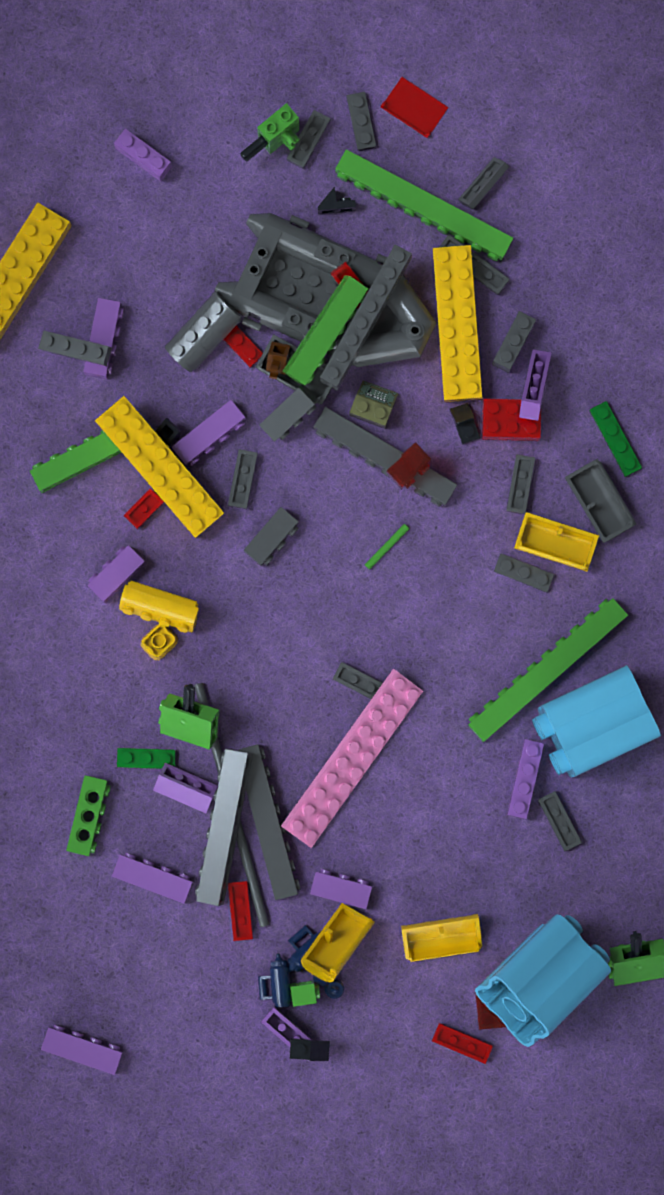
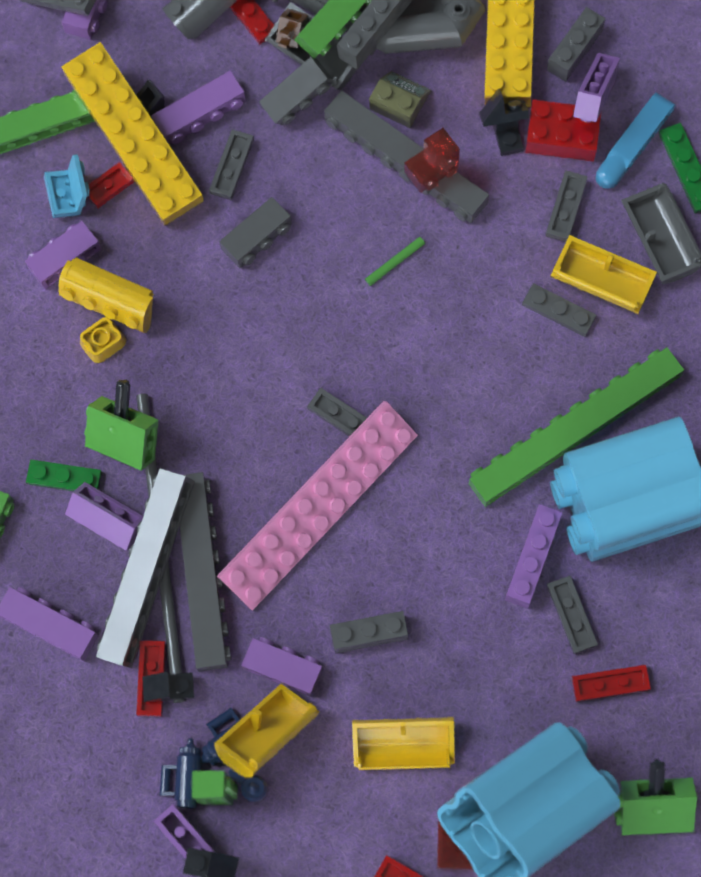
camera: 15 degrees right, 10 degrees down
(111, 518) = (67, 189): none -> medium azure bracket
(255, 917) = (168, 687): none -> black slope
(404, 854) = (369, 632): none -> dark grey brick
(457, 413) = (497, 112): none -> black slope
(569, 421) = (633, 140): none -> dark azure piece
(594, 871) = (610, 683): none -> red plate

